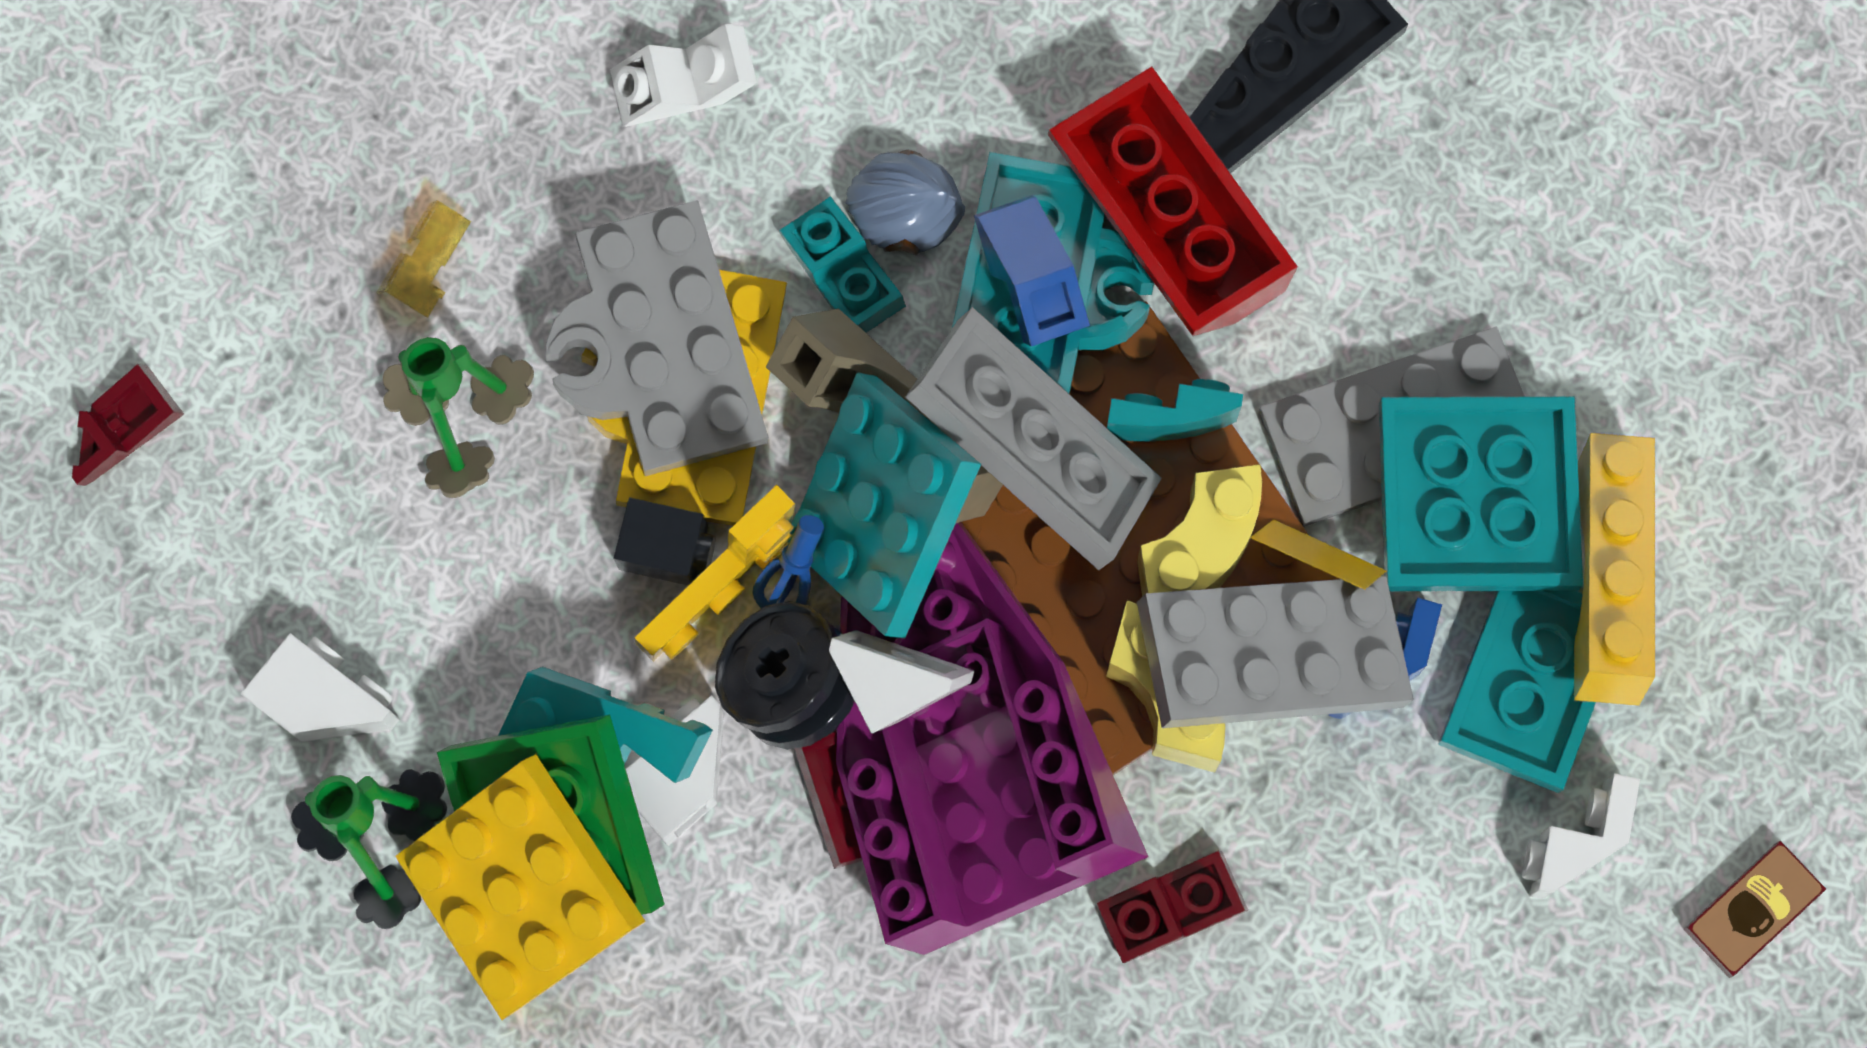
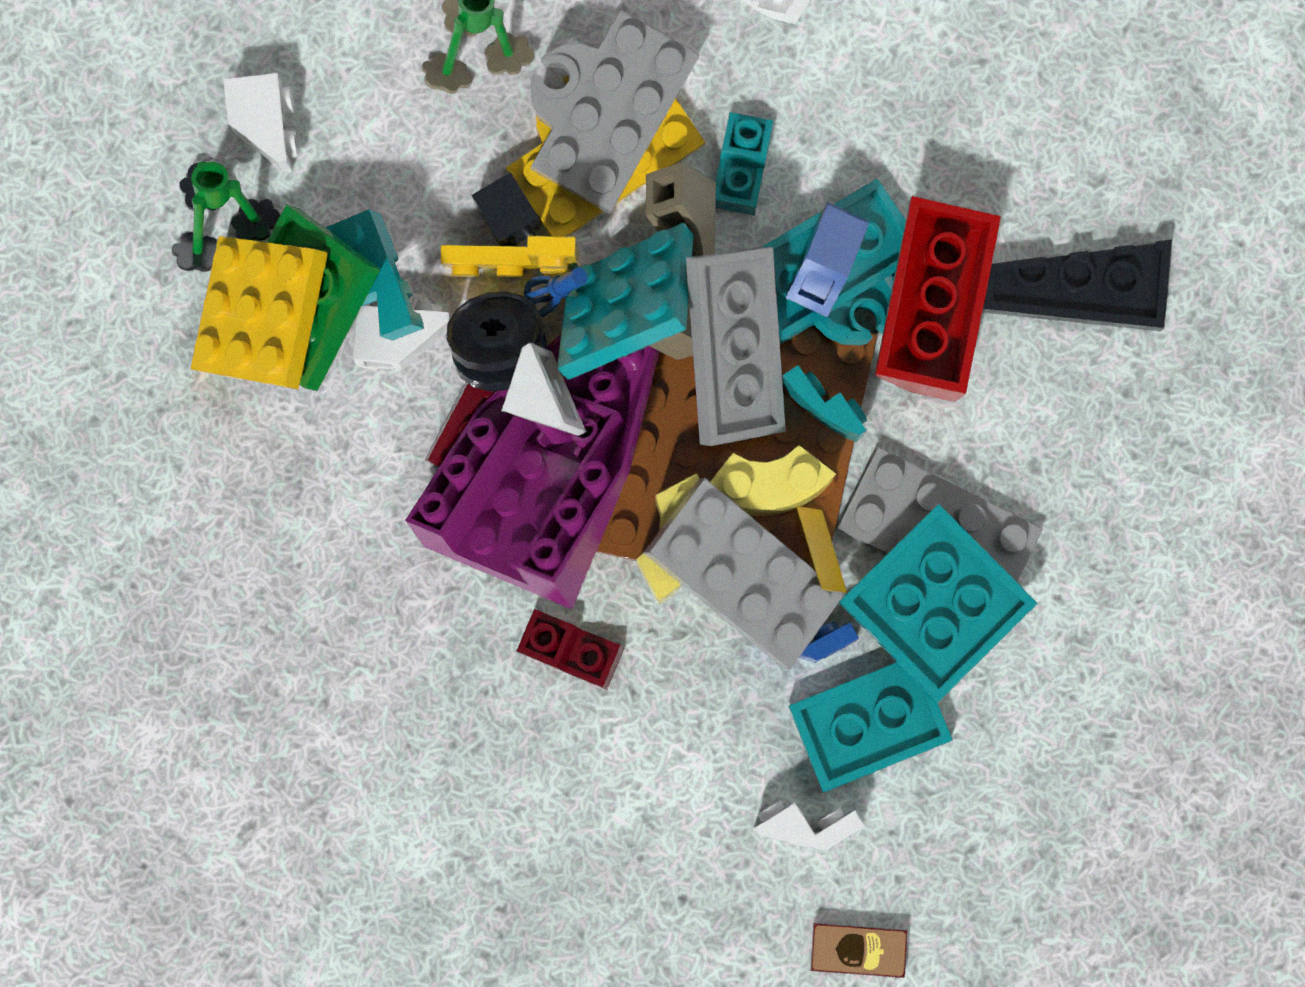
camera: 45 degrees right, 5 degrees up
(904, 202) = (807, 161): sand blue hair -> none
(1618, 600) = (966, 710): yellow arch -> none

